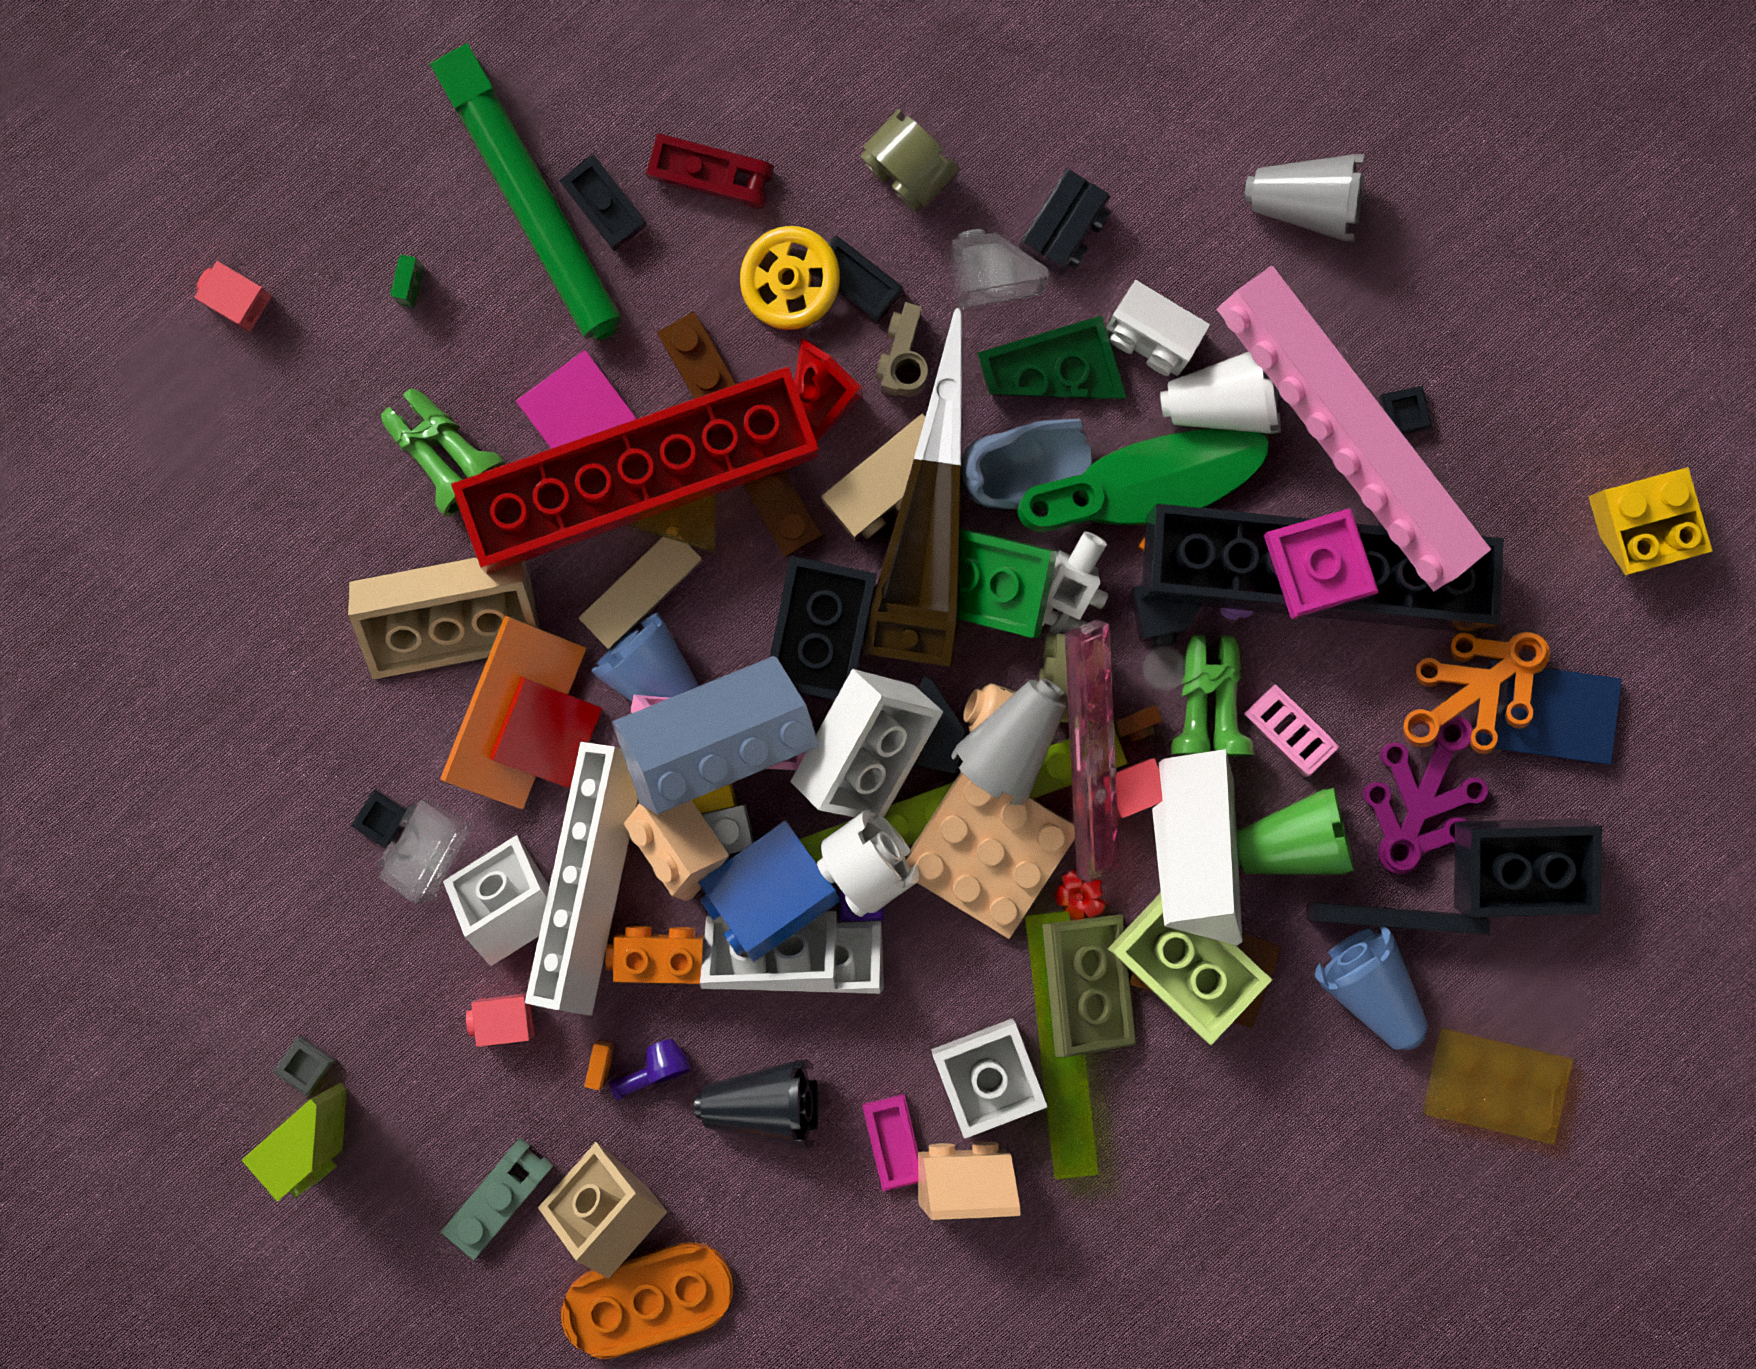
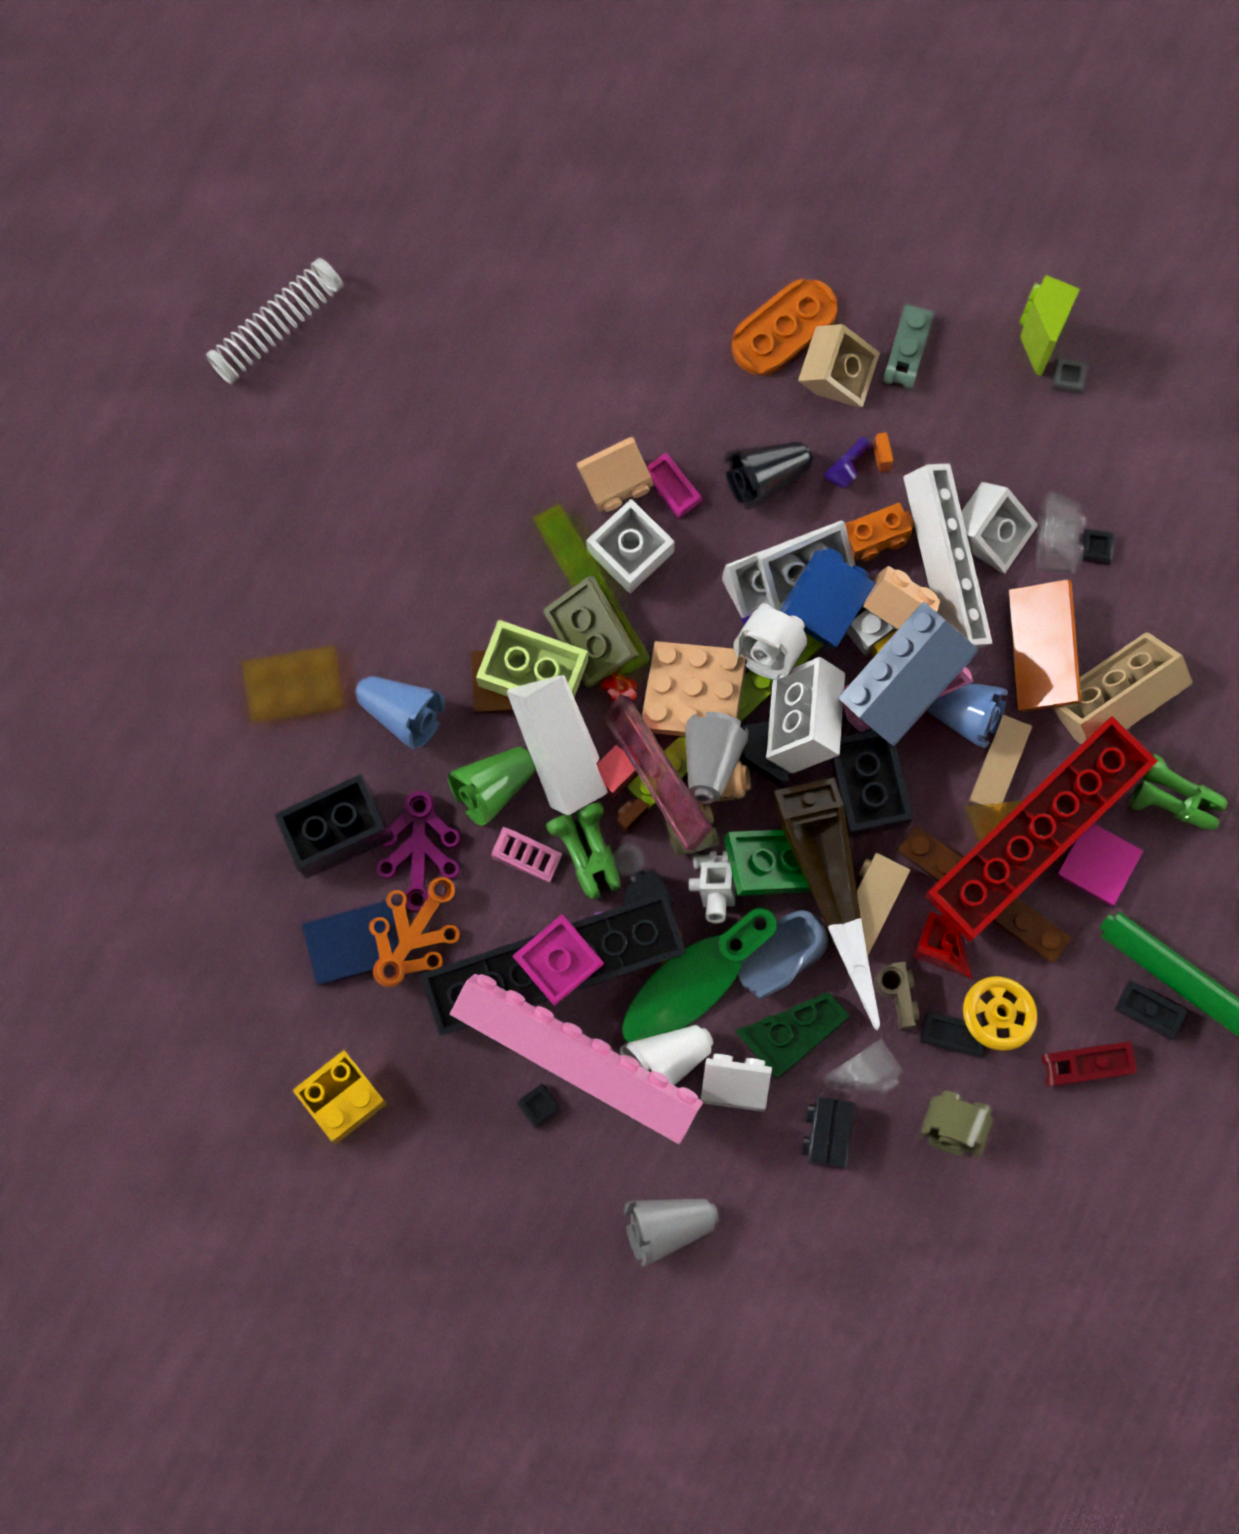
camera: 160 degrees right, 10 degrees down
(500, 1020) = (959, 451): coral brick -> none
(544, 732) = (1019, 642): red tile -> none
(1397, 918) = (409, 759): black tile -> none

